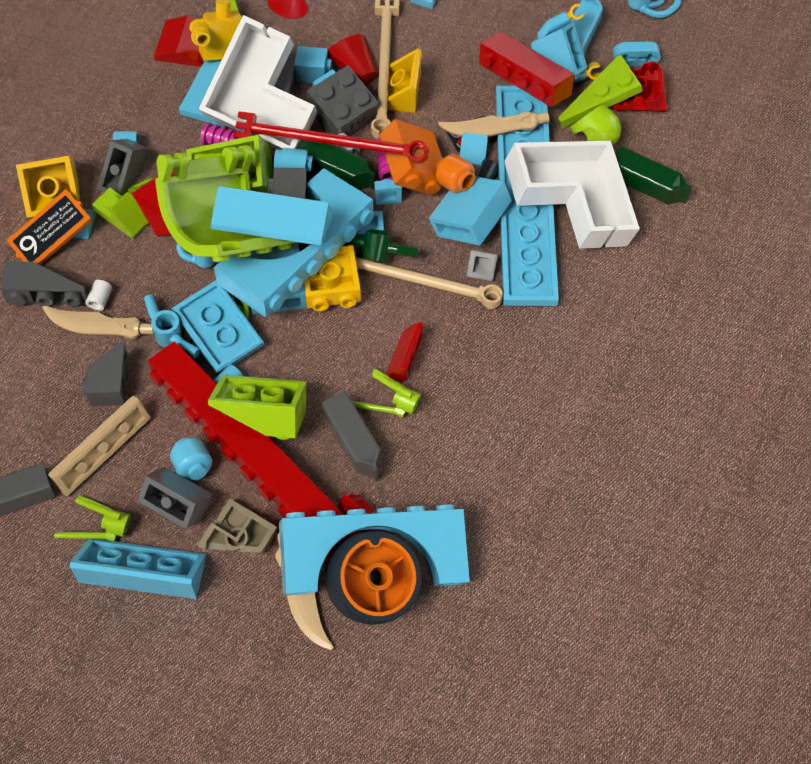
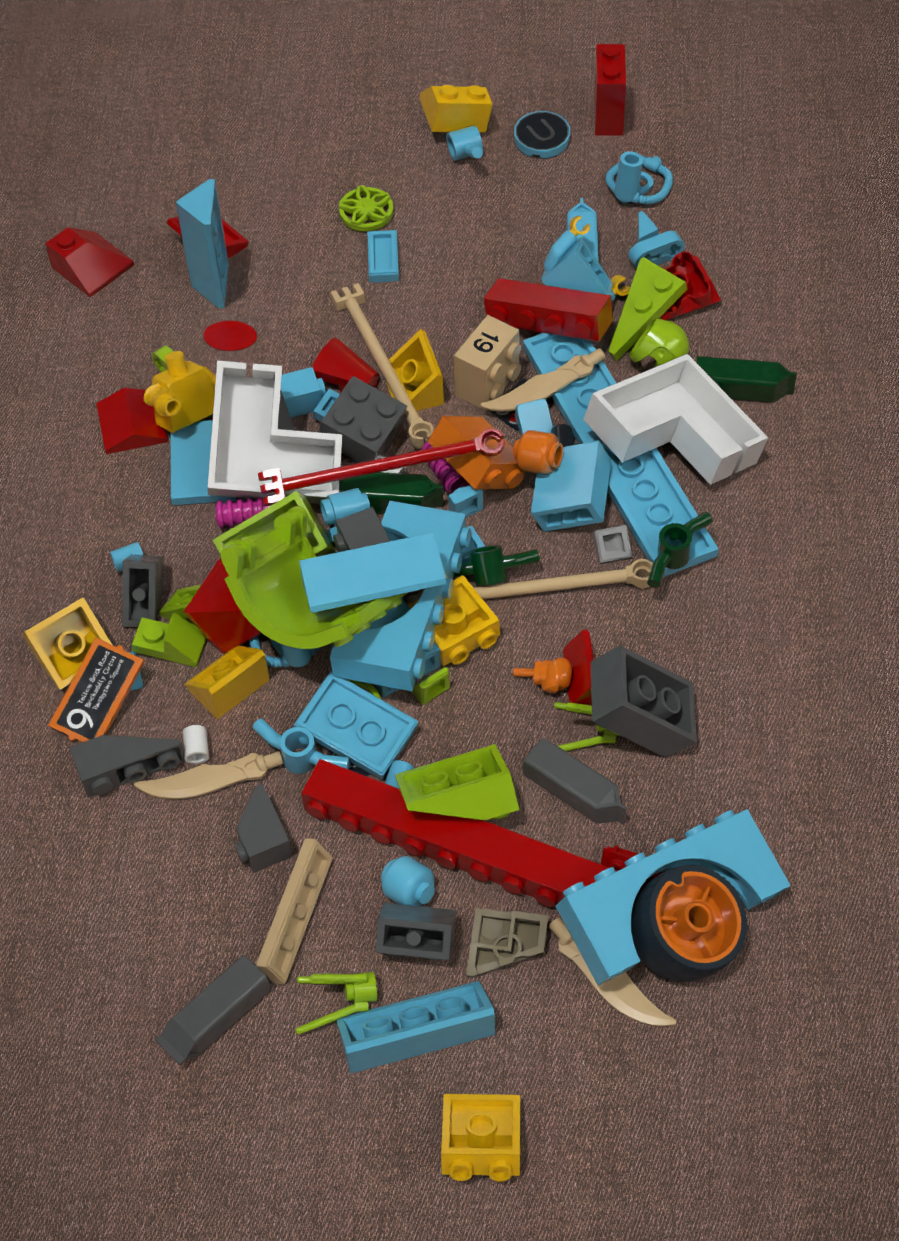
camera: 20 degrees left, 5 degrees down
(140, 670) = (481, 1136): none -> yellow plate
(147, 258) = (229, 679): none -> yellow slope
(289, 320) = (432, 686): none -> lime slope
(380, 345) = (550, 674): none -> orange piece
(430, 394) = (643, 701): none -> dark grey brick
(457, 91) = (487, 362): none -> tan brick
(519, 293) = (675, 546): none -> dark green piece
(635, 33) = (646, 228): none -> medium azure slope

